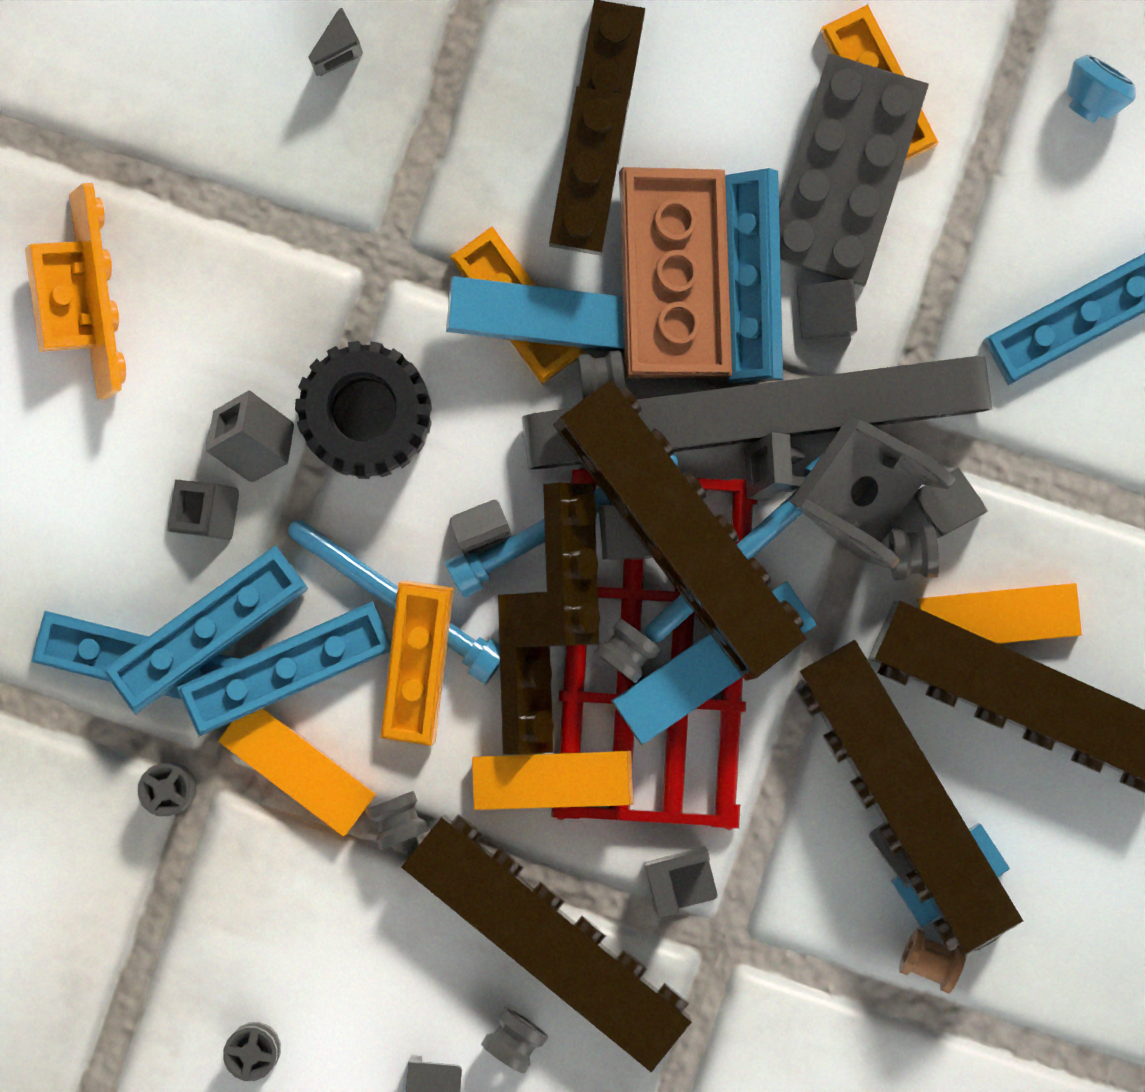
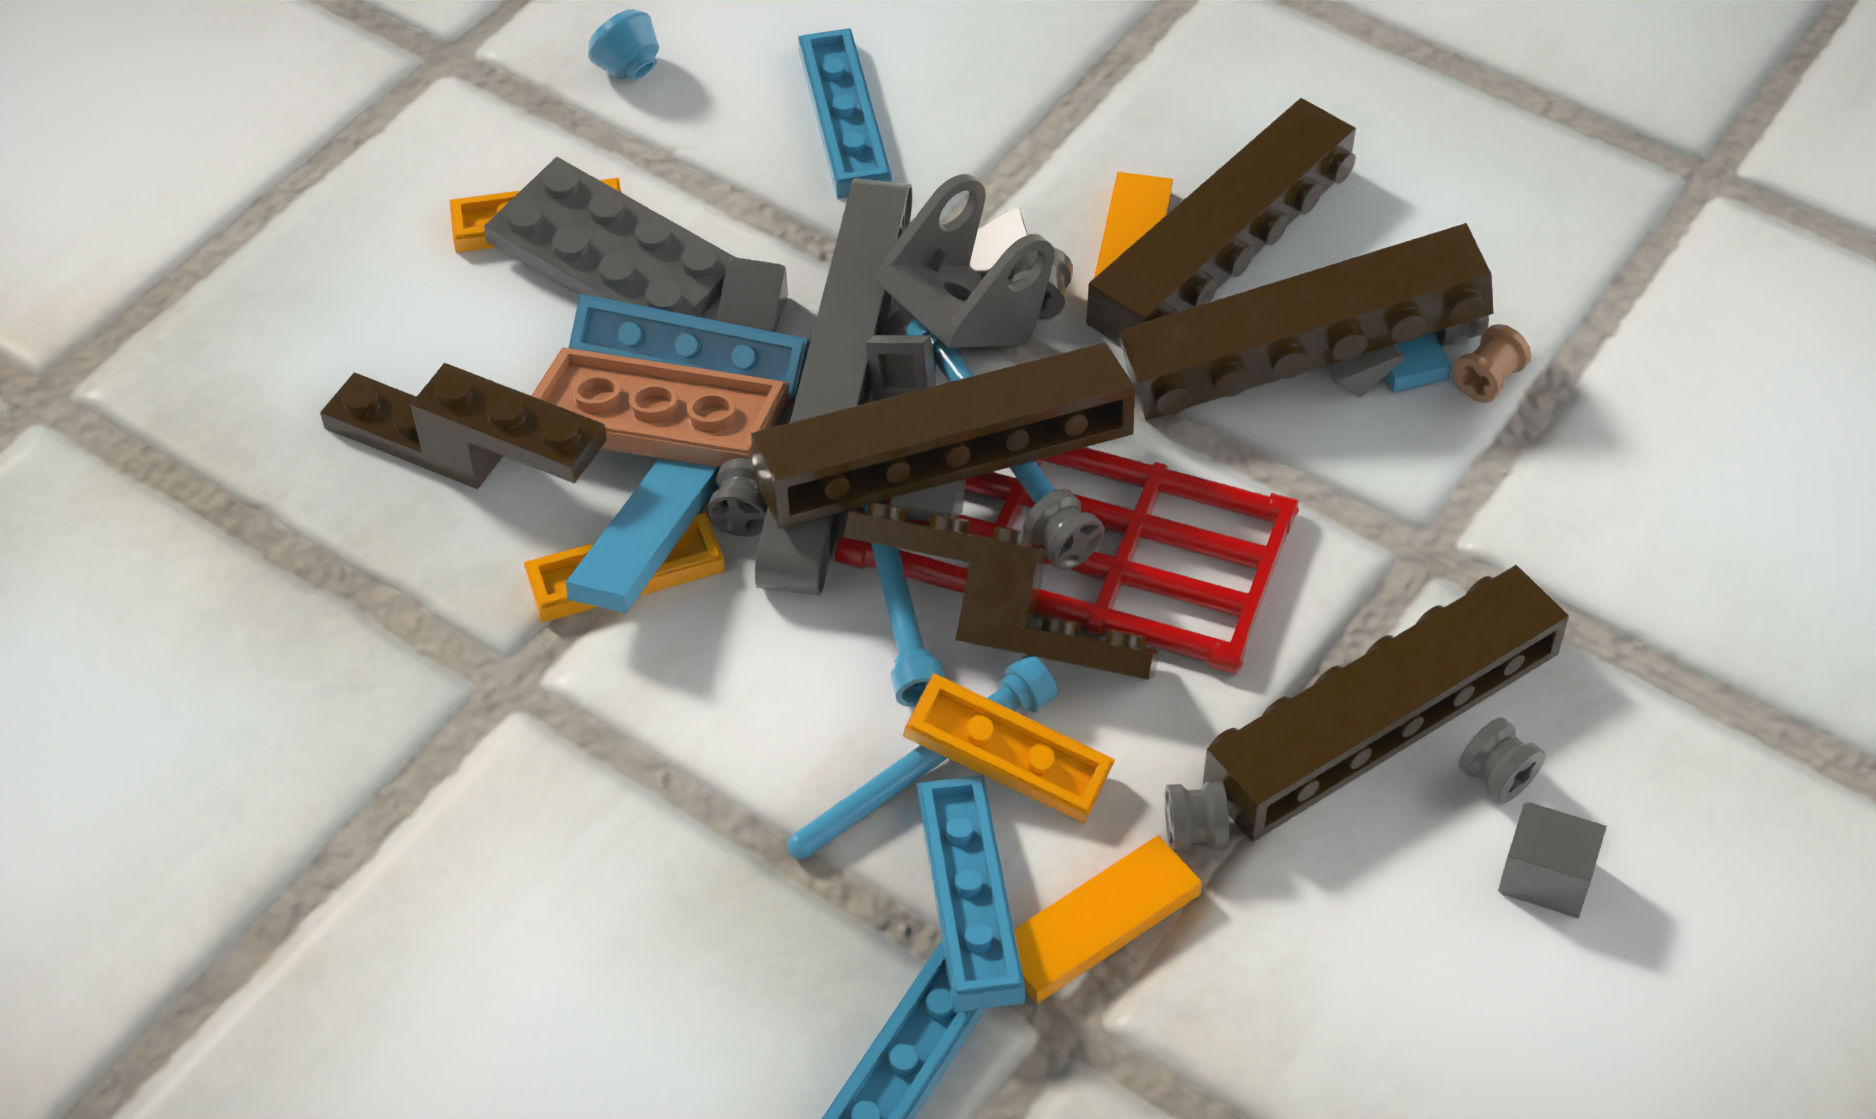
camera: 70 degrees left, 35 degrees down
(73, 293) = (402, 998): light orange bracket -> none
(153, 792) = (1082, 1047): dark grey wheel -> none
(203, 509) = (731, 946): dark grey slope -> none
(205, 630) = (891, 969): dark azure tile -> none
(249, 1061) = (1457, 1034): dark grey wheel -> none
(250, 436) = (664, 858): dark grey panel -> none
(336, 46) = (237, 651): dark grey slope -> none
(337, 373) = (672, 680): black tyre -> none
(480, 526) = (868, 654): dark grey slope -> none
(552, 780) = (1193, 647): light orange tile -> none
(680, 880) = (1344, 568): dark grey panel -> none
(687, 681) = (1122, 500): dark azure tile -> none

